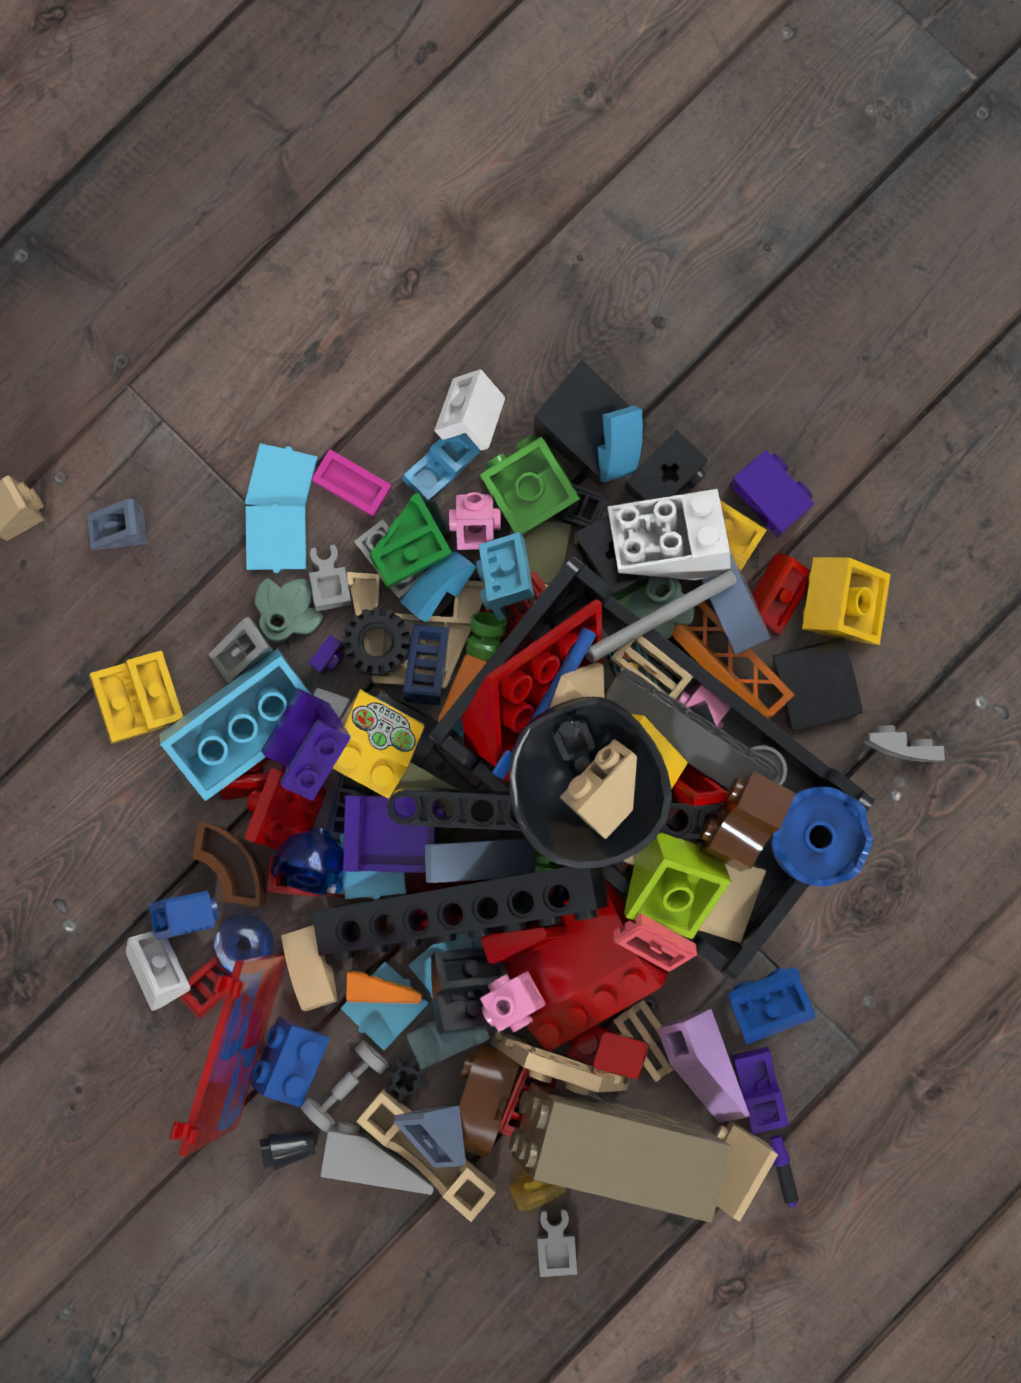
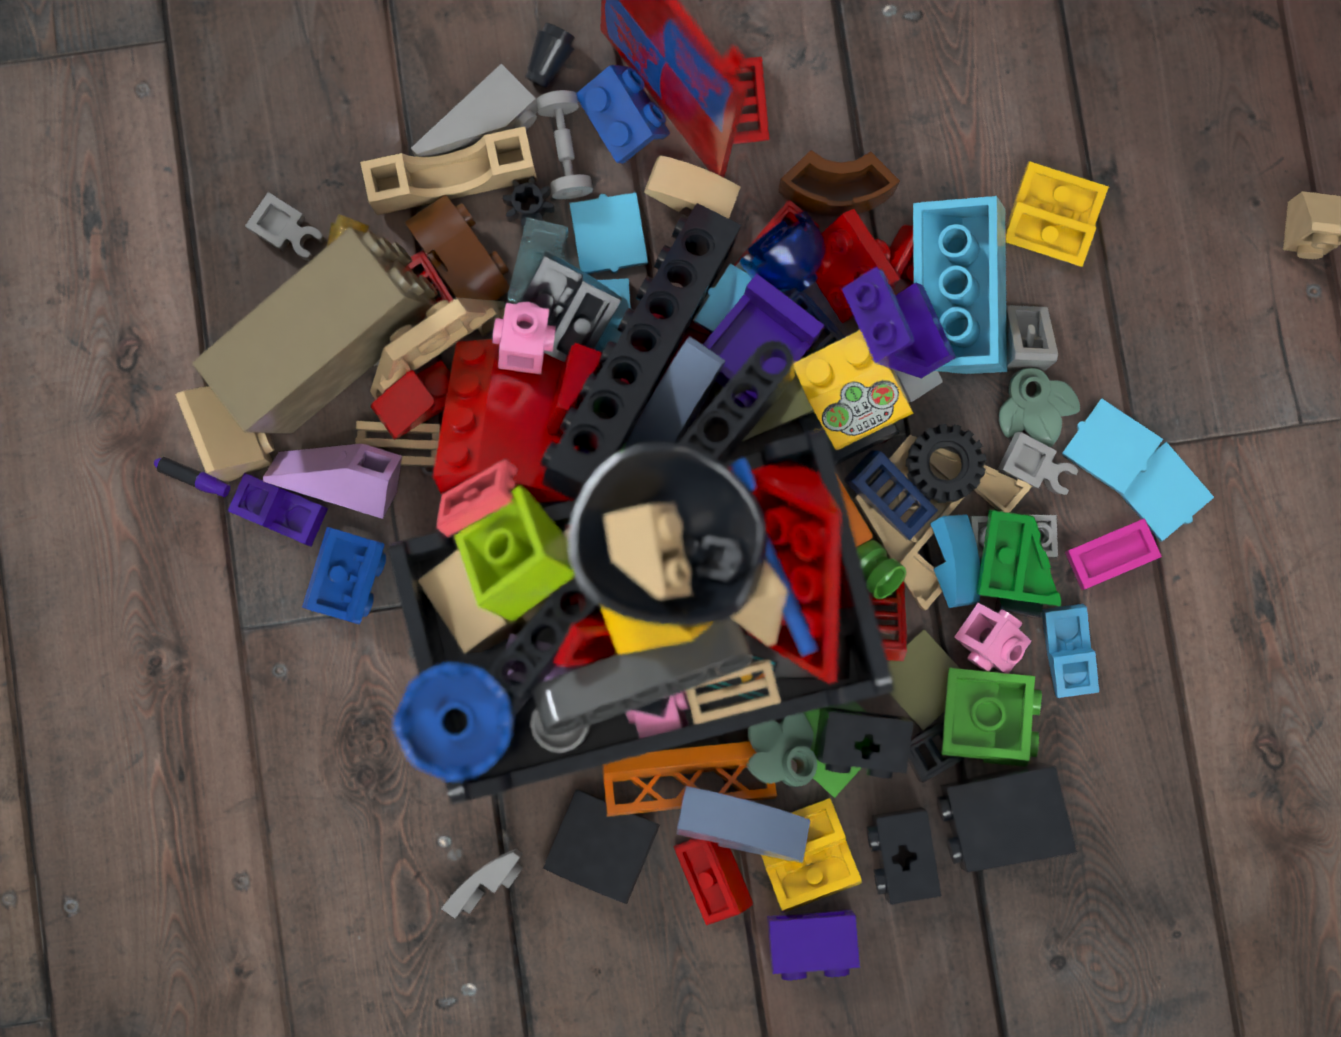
camera: 125 degrees right, 0 degrees up
(117, 526) = (1229, 310): sand blue slope -> none
(156, 969) = (794, 56): white slope -> none
(183, 915) = (824, 109): blue brick -> none
(242, 928) = (775, 149): clear blue piece -> none
(328, 656) = (965, 410): dark purple plate -> none
(372, 989) = (631, 229): orange slope -> none
(435, 1134) = (461, 188): sand blue slope -> none
(471, 408) = (1103, 716): white panel -> none
(504, 573) = (923, 627): medium azure bracket -> none
(622, 443) = (966, 831): dark azure slope -> none
(660, 616) = (774, 737): light grey piece -> none
(671, 536) = (842, 809): white slope -> none
(746, 821) = (522, 661): reddish brown brick -> none
(846, 600) = (659, 934): yellow slope -> none

